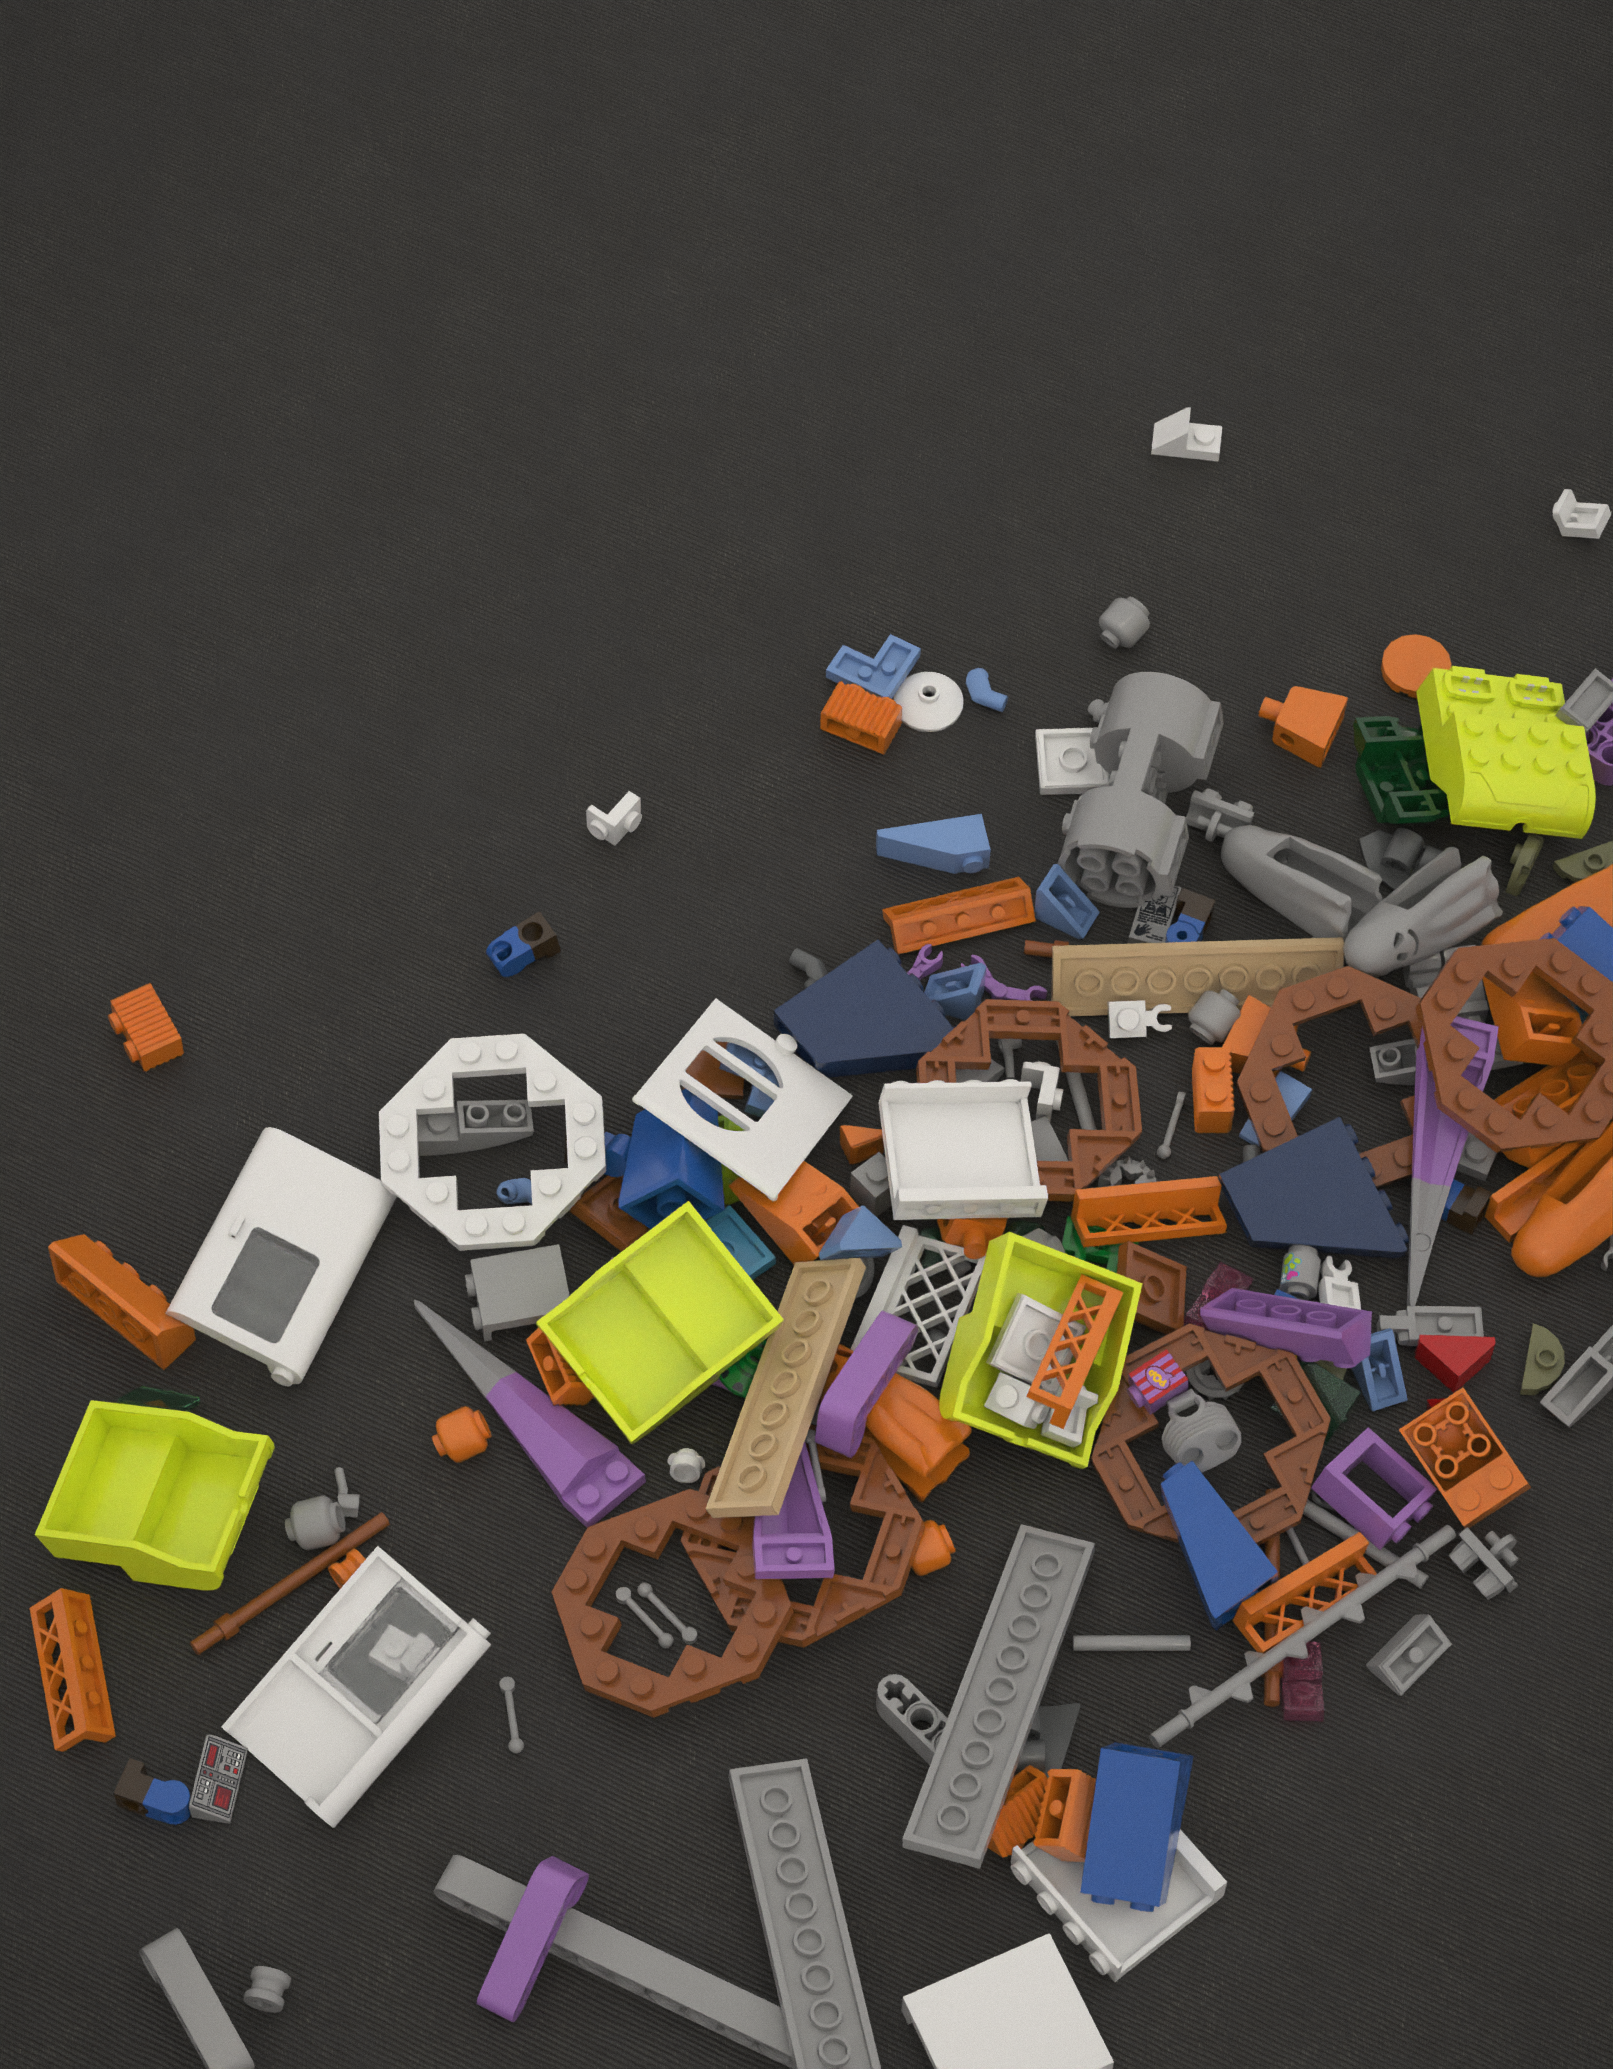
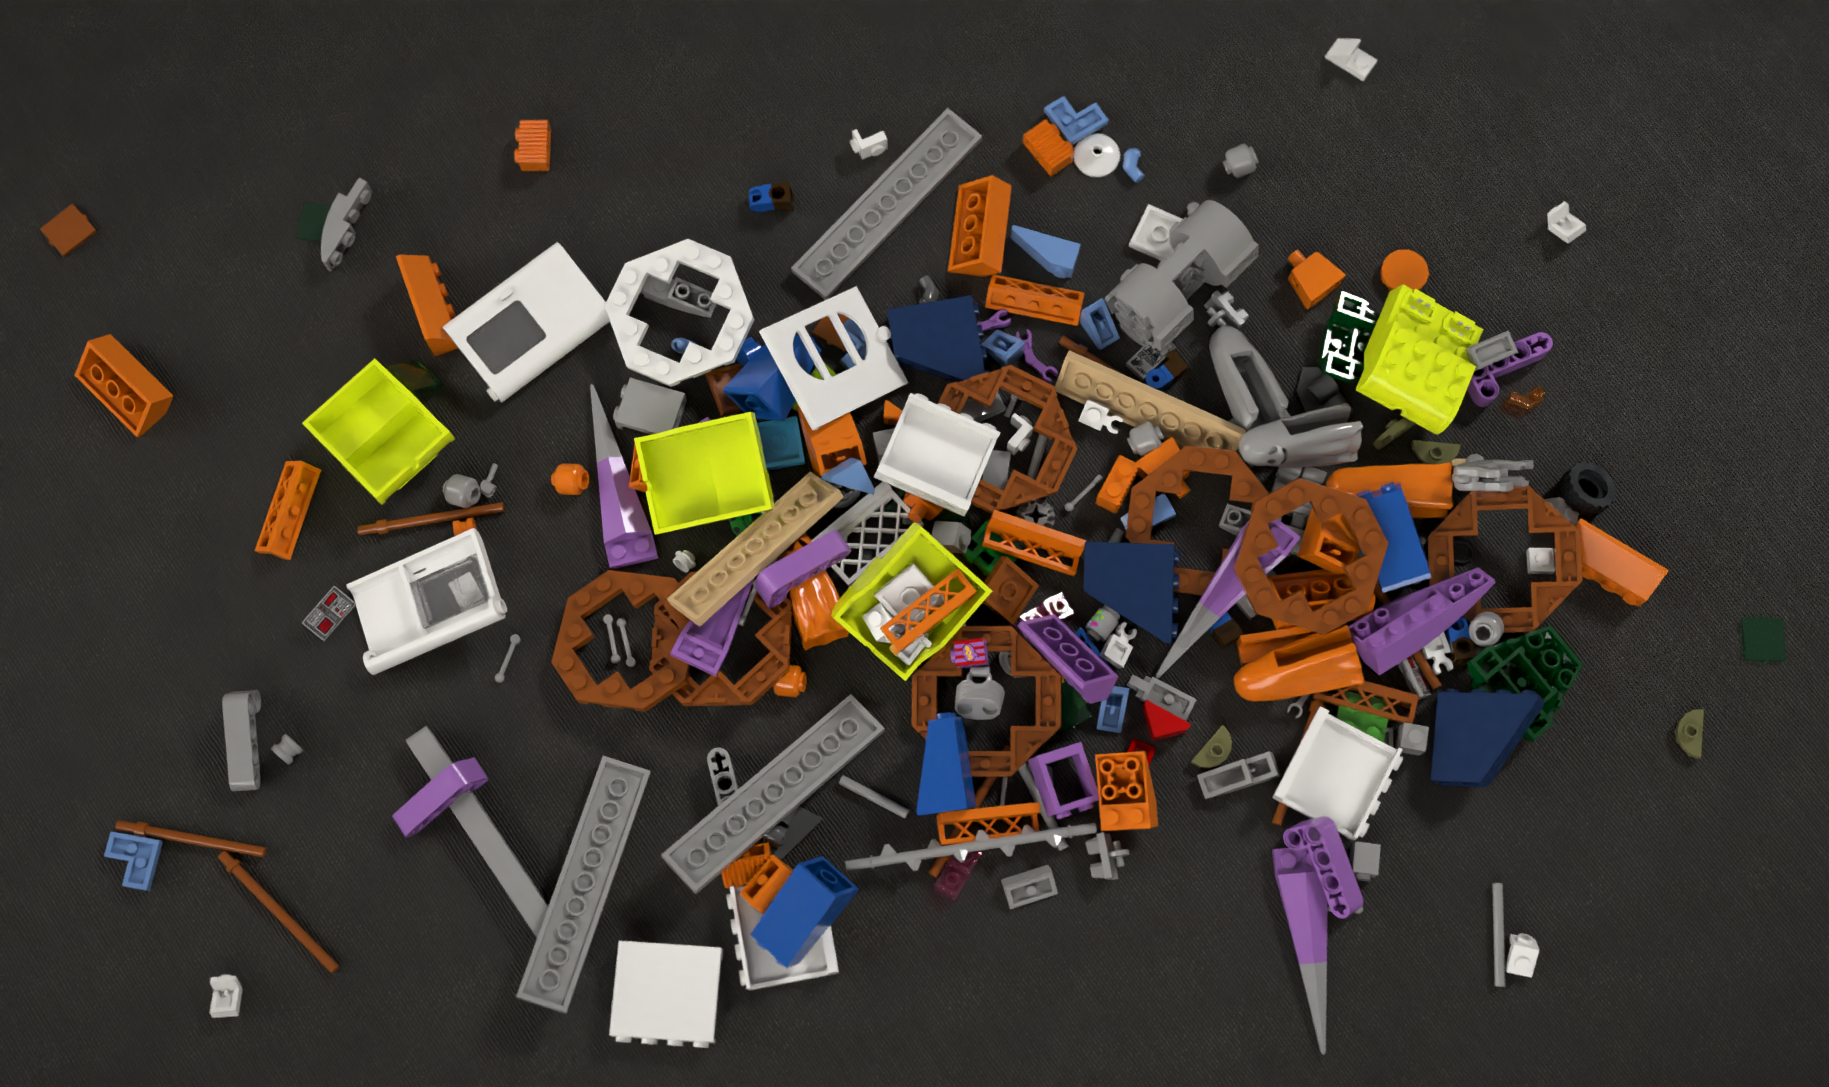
camera: 30 degrees right, 15 degrees up
(152, 1797) = (286, 604): leg -> none
(685, 886) = (886, 204): none -> light grey plate
(830, 856) = (980, 227): none -> orange slope

